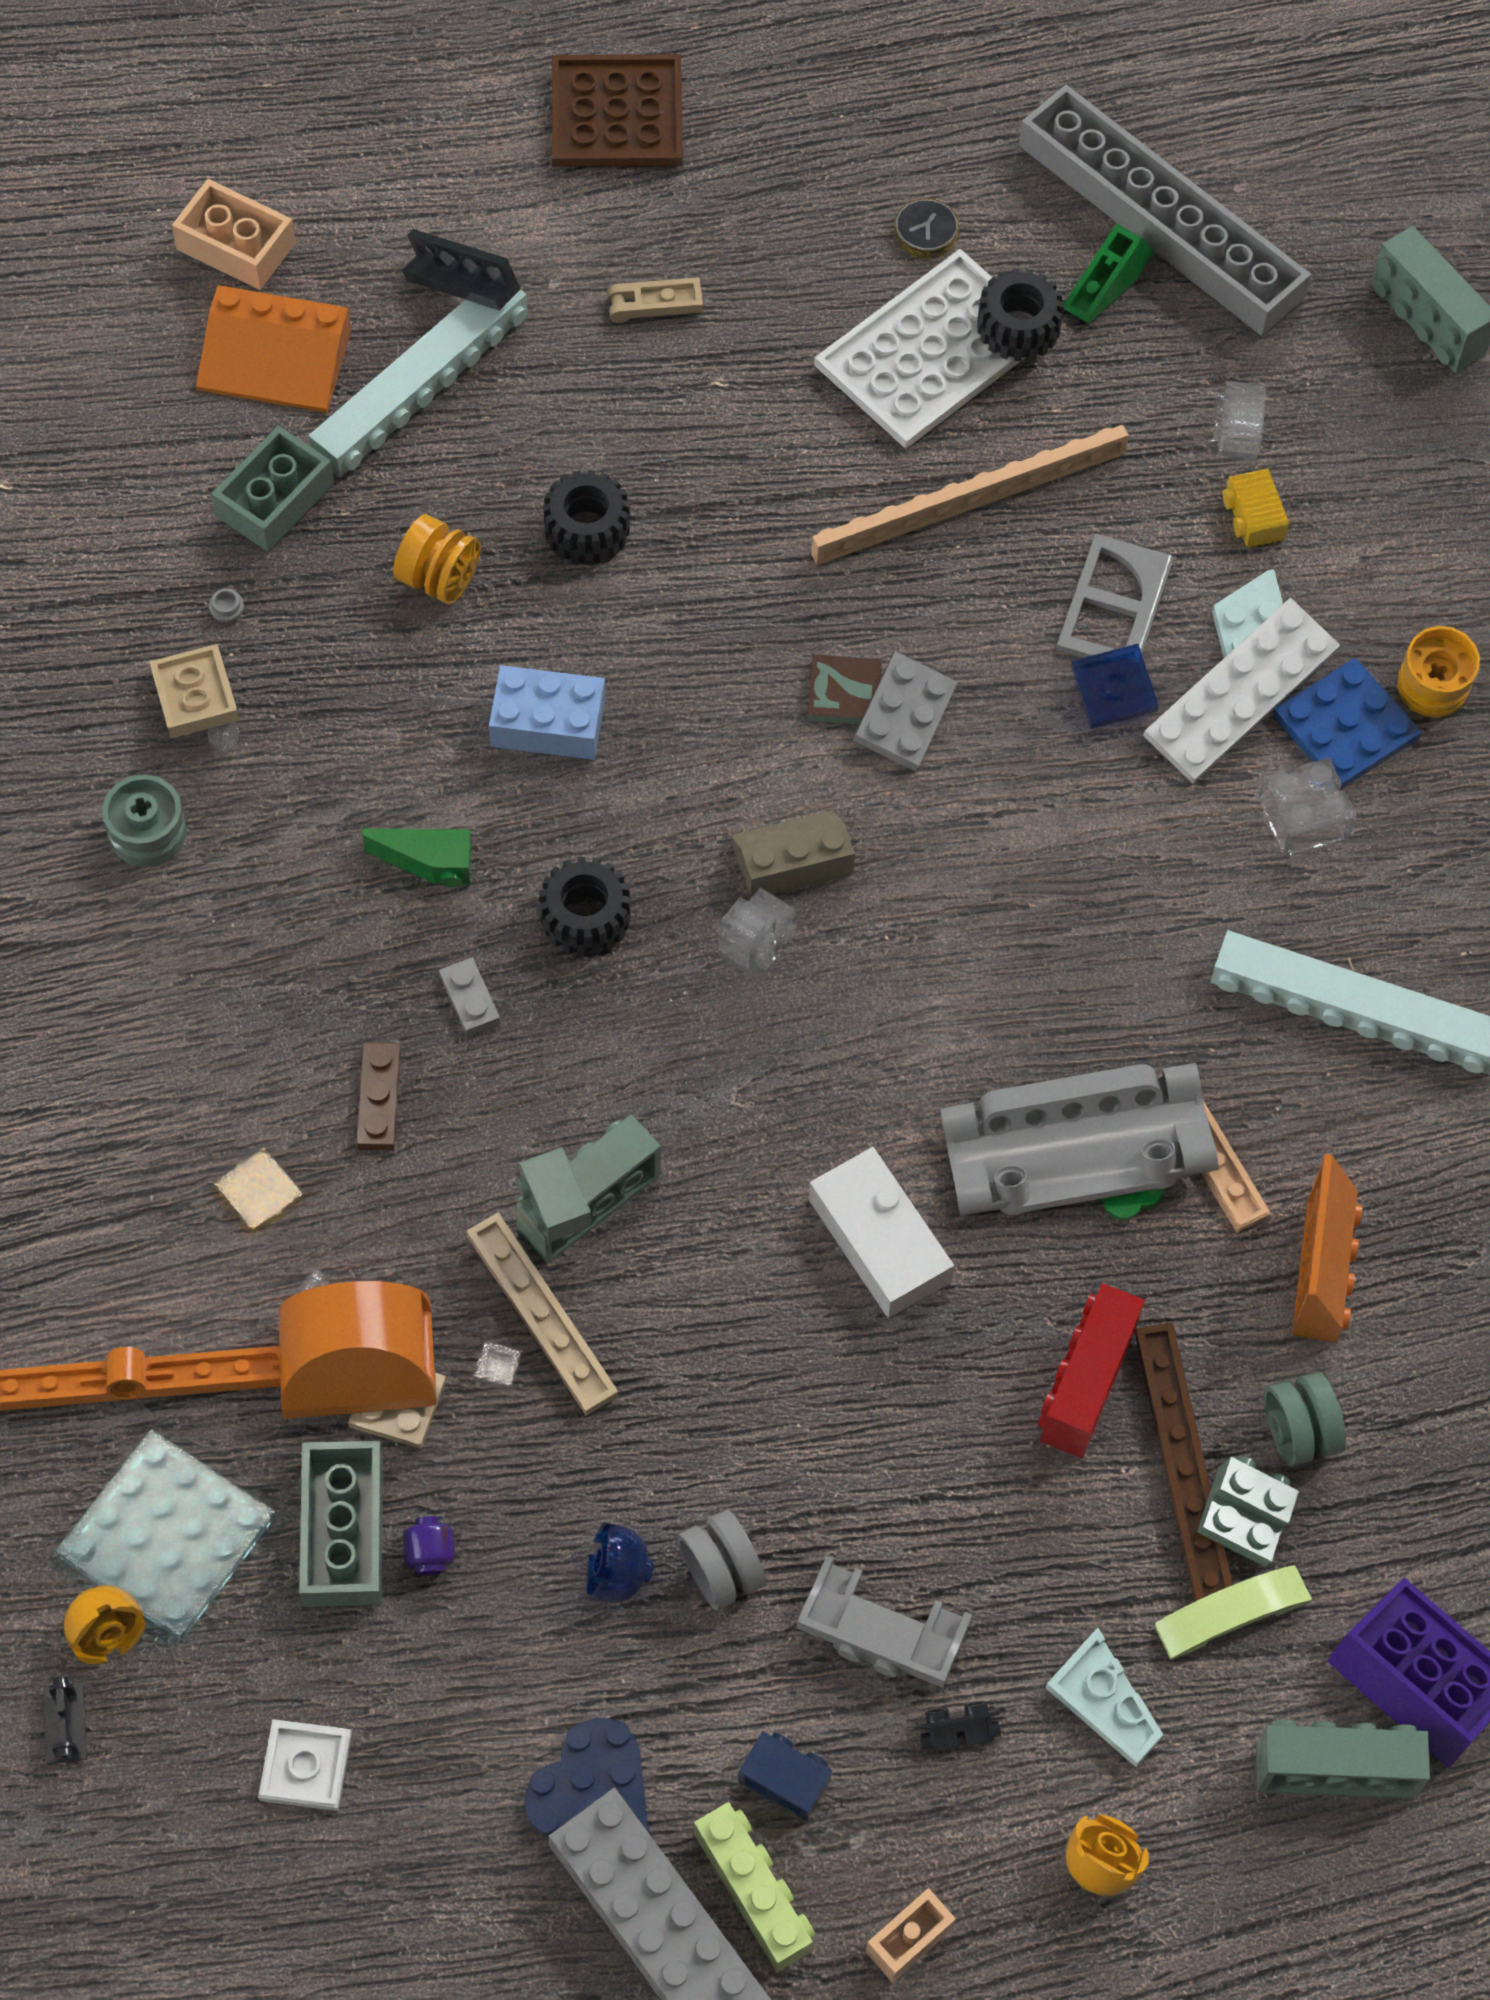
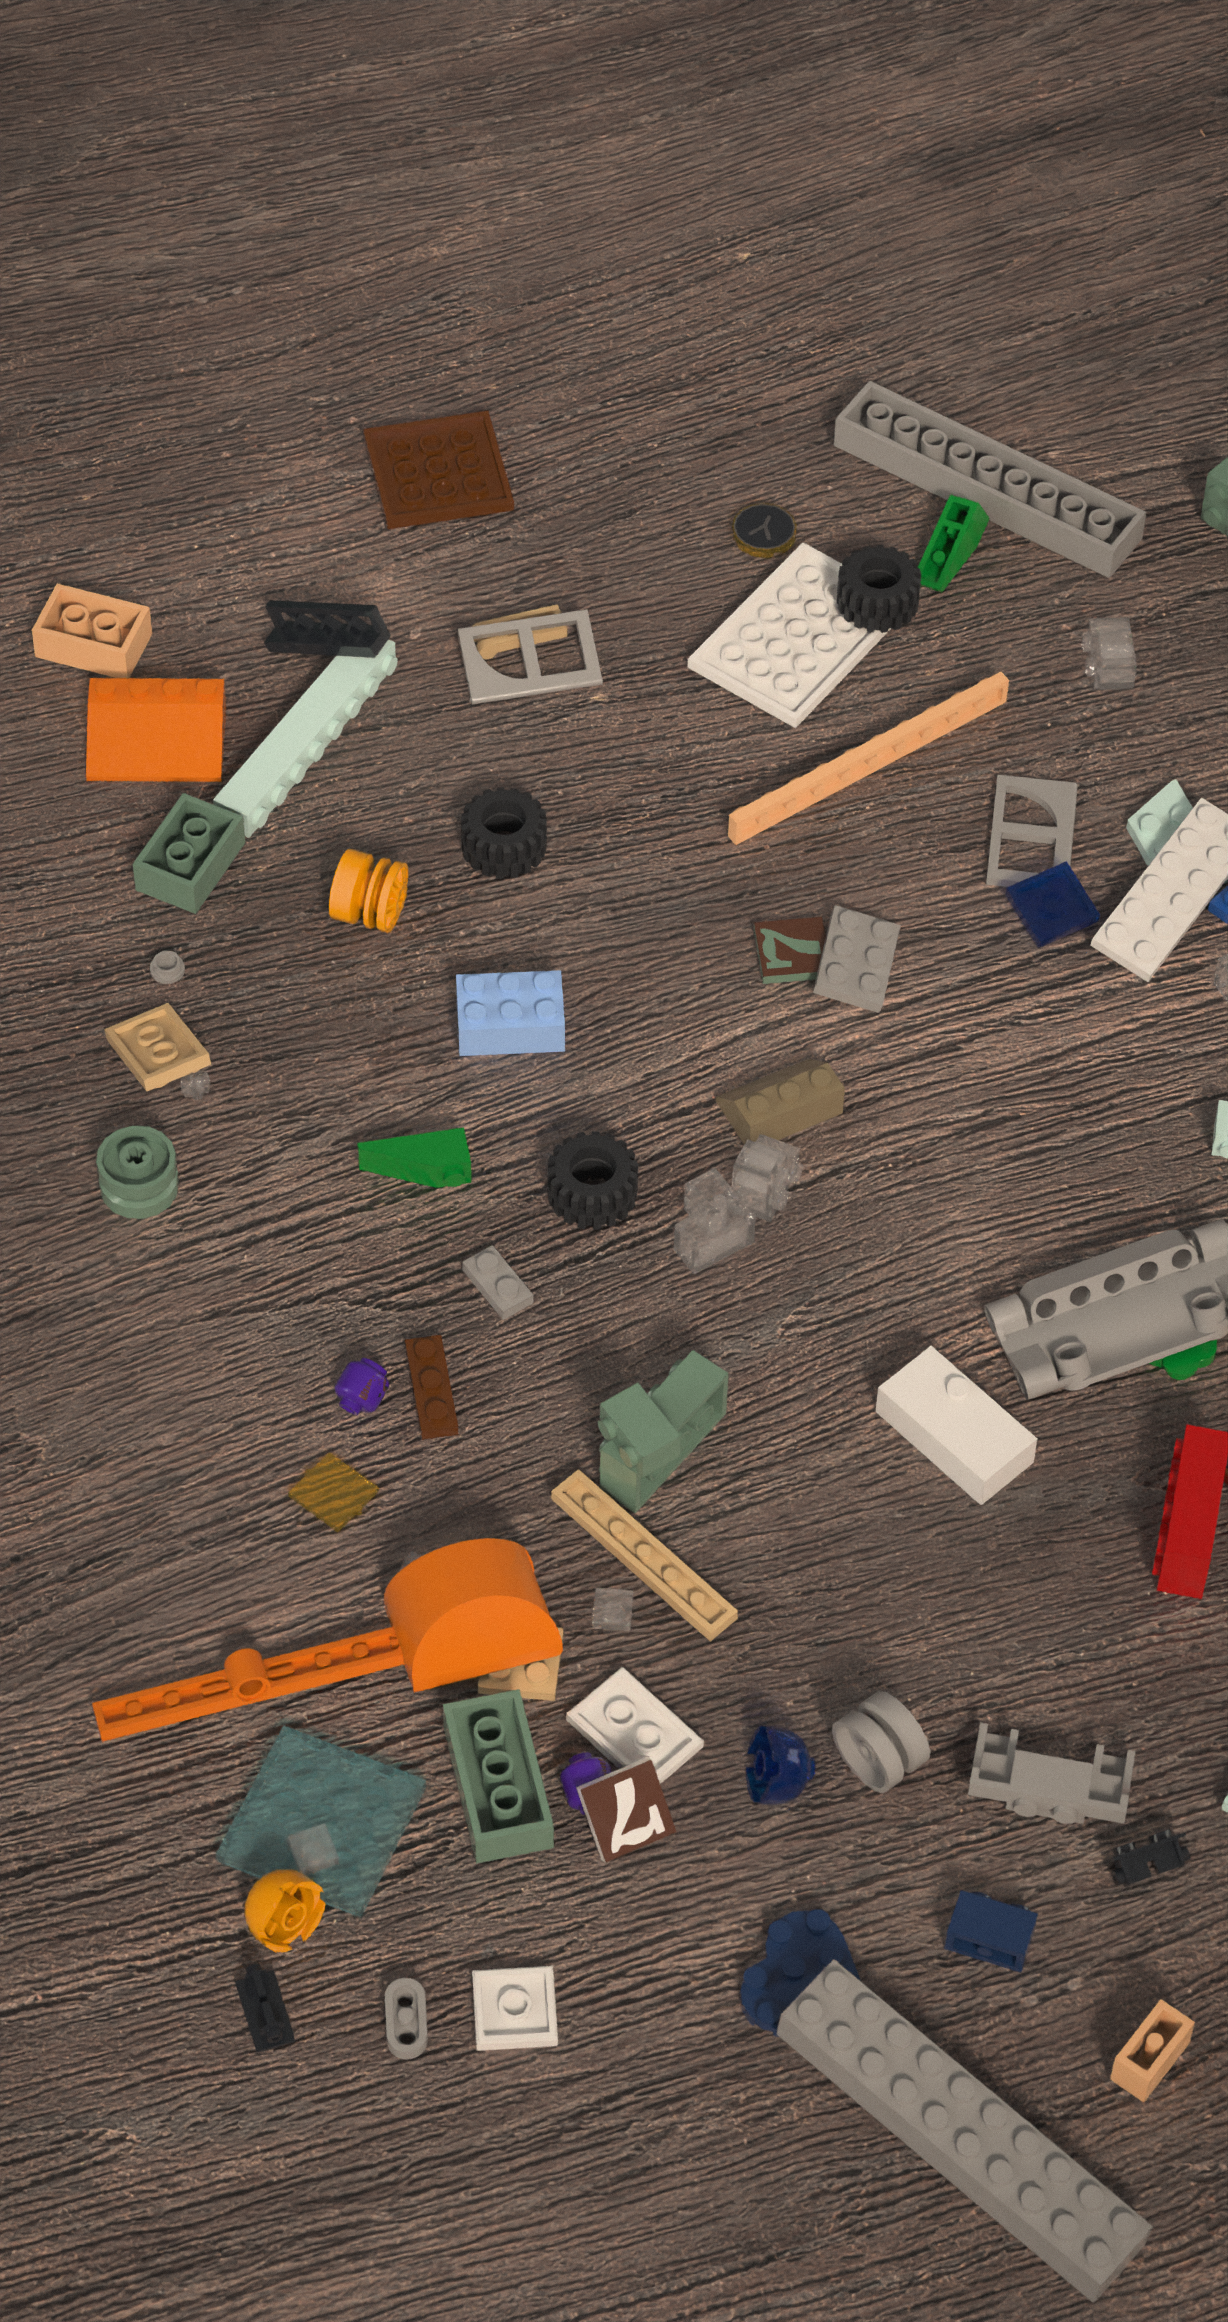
camera: 10 degrees left, 10 degrees down
(144, 1569) = (313, 1849): none -> clear plate
(196, 1759) = (406, 2021): none -> light grey plate
(309, 1086) = (361, 1386): none -> dark purple head
(457, 1582) = (626, 1809): none -> reddish brown tile
(490, 1496) = (633, 1725): none -> white tile
(612, 353) = (489, 685): none -> light grey window
(696, 978) = (716, 1224): none -> clear brick
(753, 1887) = (987, 2036): yellowish green brick -> none
(1256, 508) = (1146, 728): yellow brick -> none

